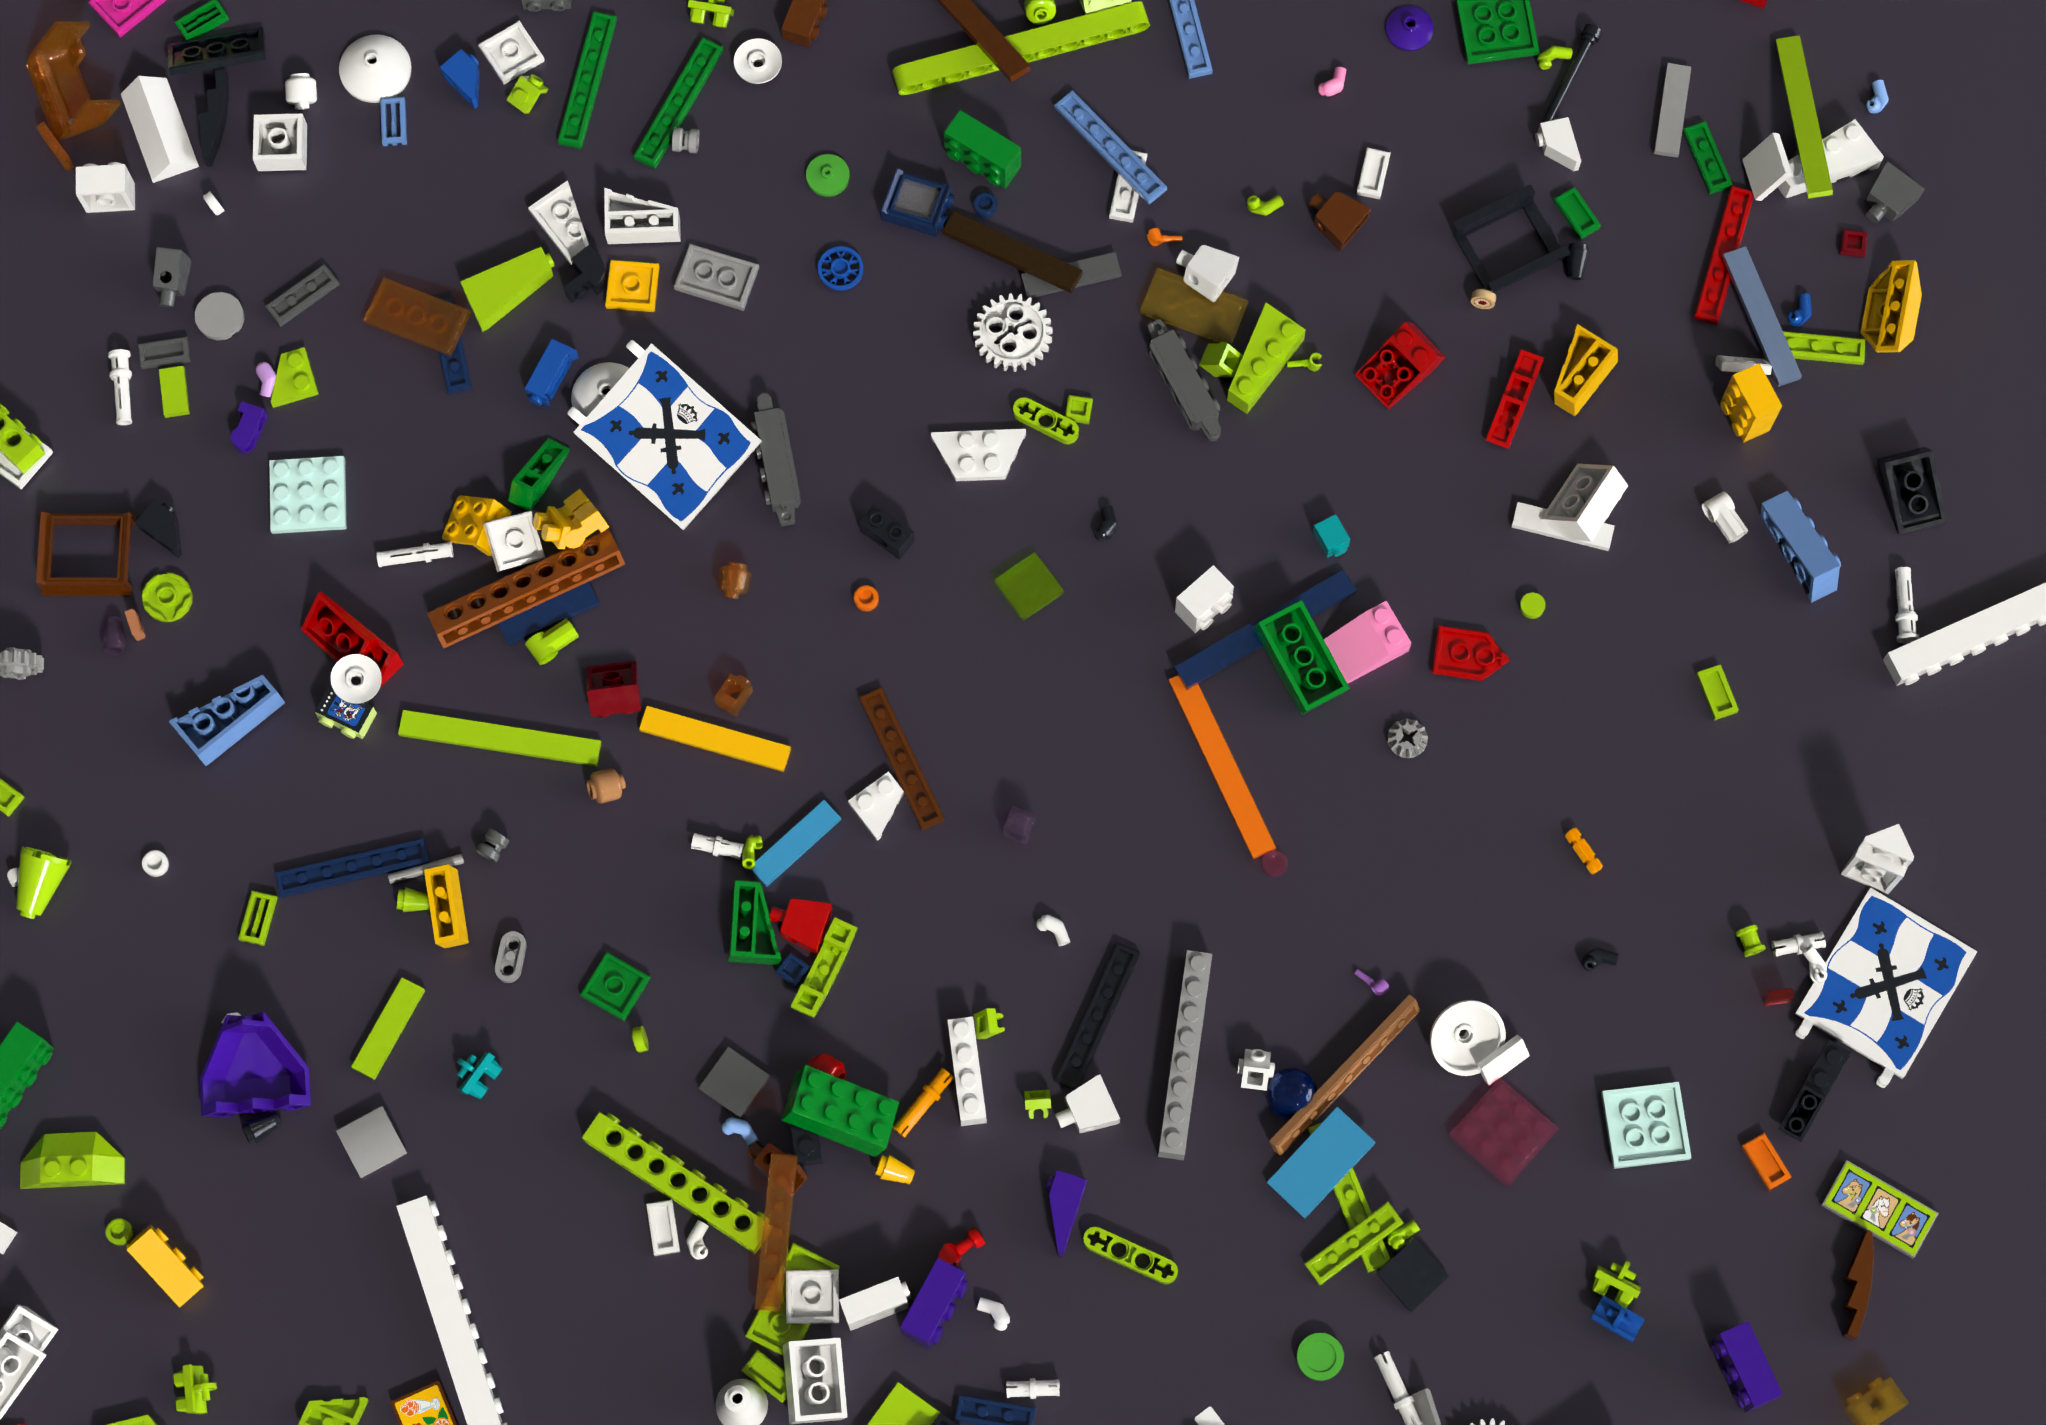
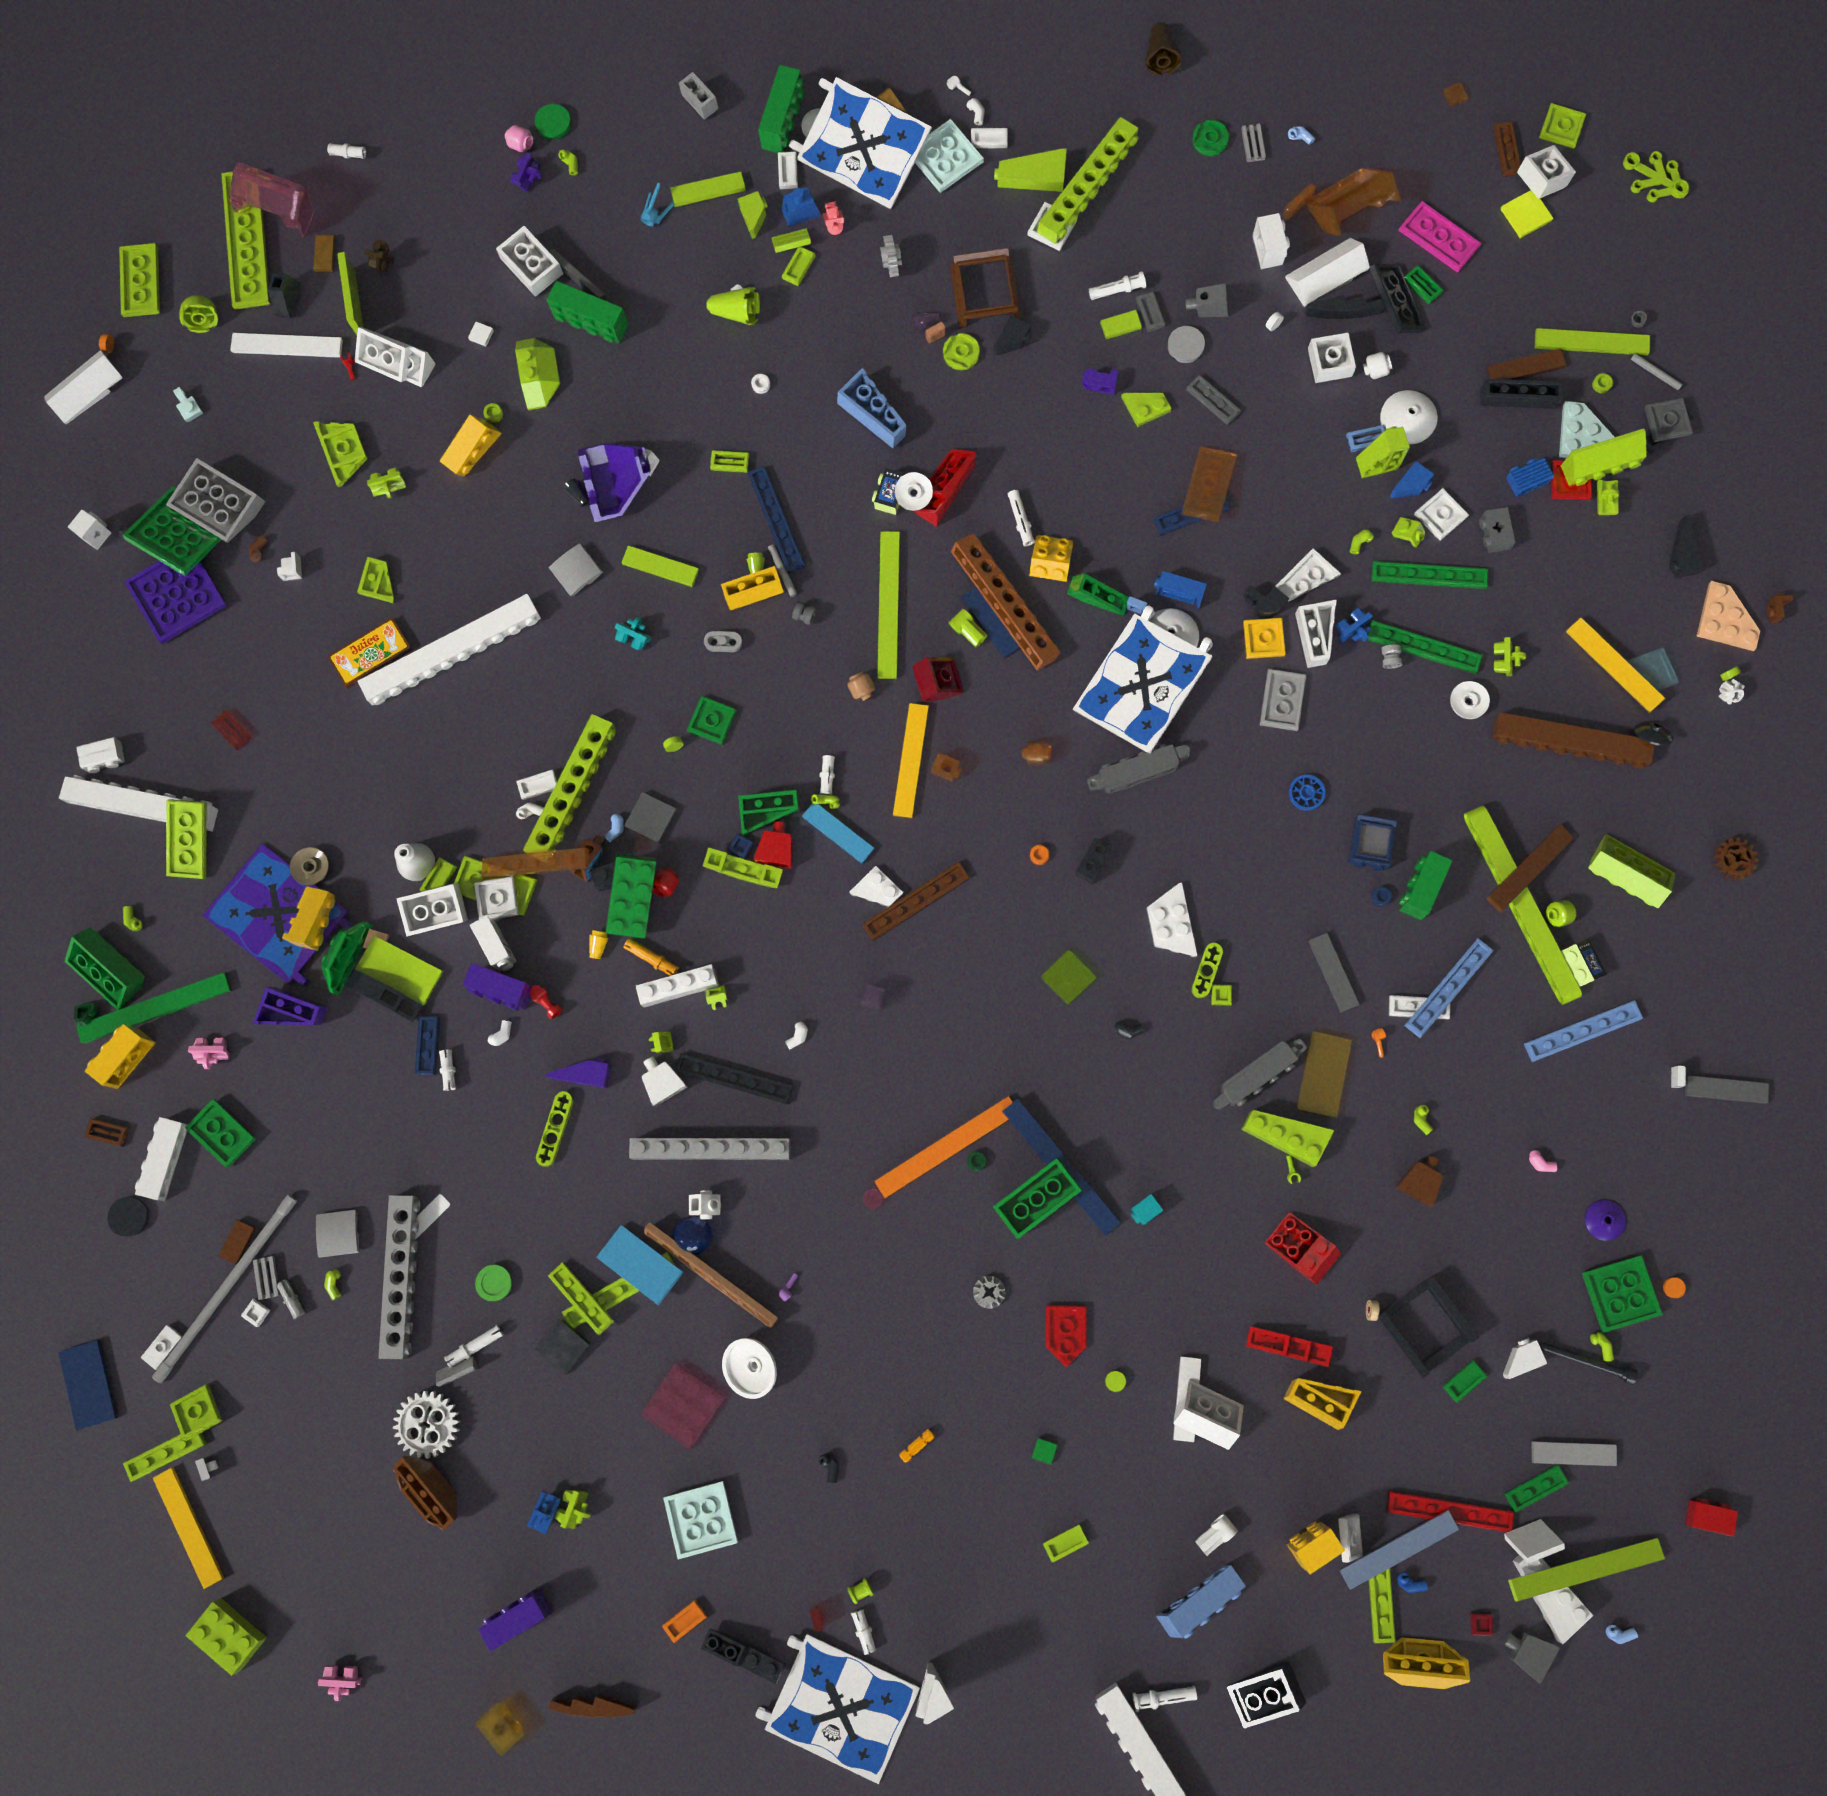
camera: 90 degrees right, 5 degrees up
(267, 377) = (1142, 387): lavender arm -> none
(307, 494) = (1056, 434): light aqua plate -> none
(422, 100) = (1384, 453): none -> lime wedge
(506, 285) = (1245, 543): lime slope -> none
(514, 541) = (1040, 585): white tile -> none
(524, 151) = (1358, 539): none -> lime arm
(562, 429) = (1136, 605): none -> medium blue tile
(571, 523) = (1060, 623): yellow hips -> none
(641, 185) = (1347, 630): none -> blue hips
(827, 175) = (1384, 770): bright green piece -> none
(1012, 252) = (1343, 923): dark brown tile -> none
(1026, 349) = (1289, 921): white gear -> none
(1204, 599) = (1074, 1114): white brick -> none
(1208, 270) = (1355, 1080): white torso -> none
(1221, 359) = (1280, 1101): lime brick -> none
(1244, 730) = (976, 1161): none -> dark green tile
(1368, 642) = (1061, 1248): bright pink slope -> none
(1373, 173) = (1468, 1205): white tile -> none
(1397, 1237) = (587, 1330): lime arm -> none
(1503, 1059) = (738, 1398): white tile -> none
(1577, 260) = (1421, 1386): black cone -> none
(1606, 701) = (1044, 1451): none -> green tile
(1817, 965) = (846, 1648): white arm -> none
(1880, 1209) = (657, 1718): tile -> none

